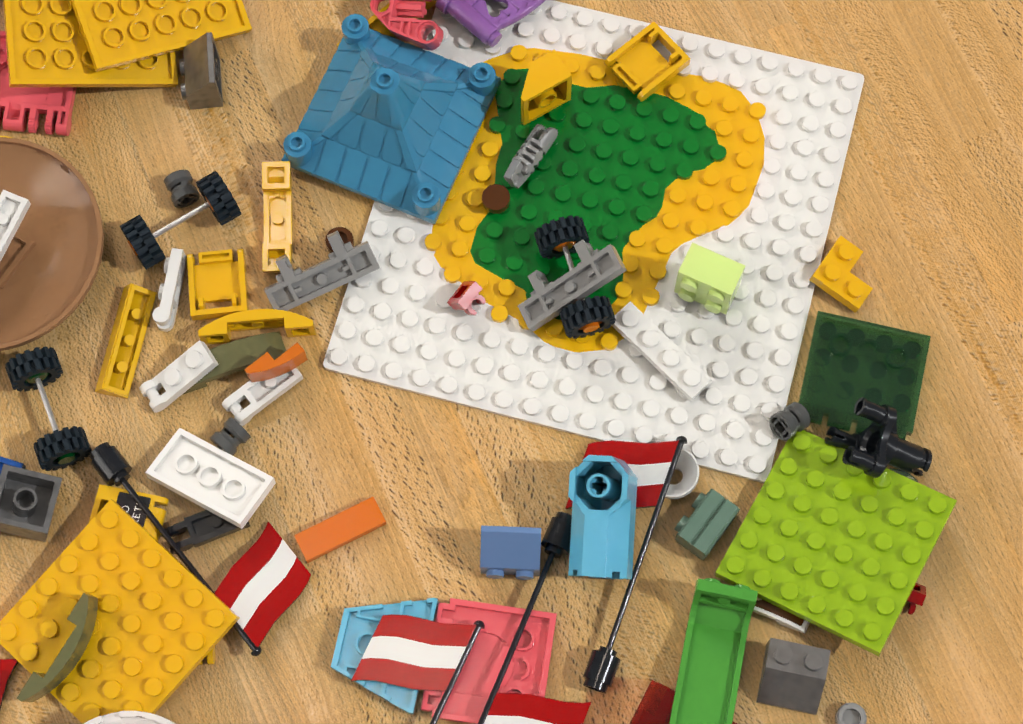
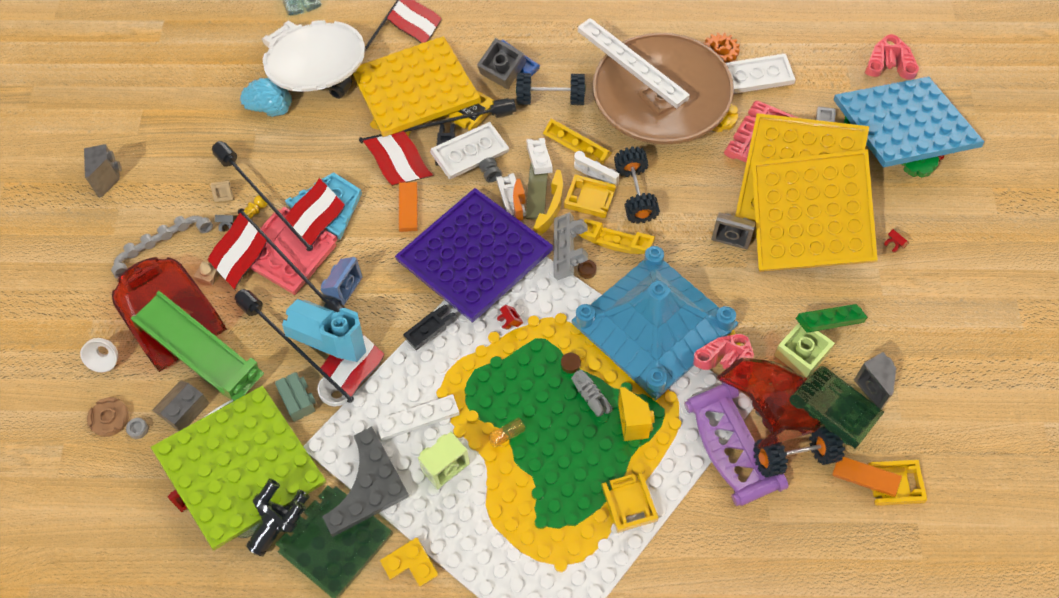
camera: 115 degrees right, 10 degrees down
(84, 617) = (417, 64): olive slope -> none
(182, 190) = (662, 195): dark grey wheel -> none
(385, 392) = (474, 254): none -> dark purple plate
(529, 395) = (429, 327): none -> black hinge
(585, 315) = (459, 374): black axle -> none
(589, 275) = (480, 370): light grey hinge -> none
(629, 233) = (506, 432): none -> clear yellow bar
(775, 356) = (374, 488): none -> dark grey plate
(789, 421) = (326, 469): dark grey wheel -> none

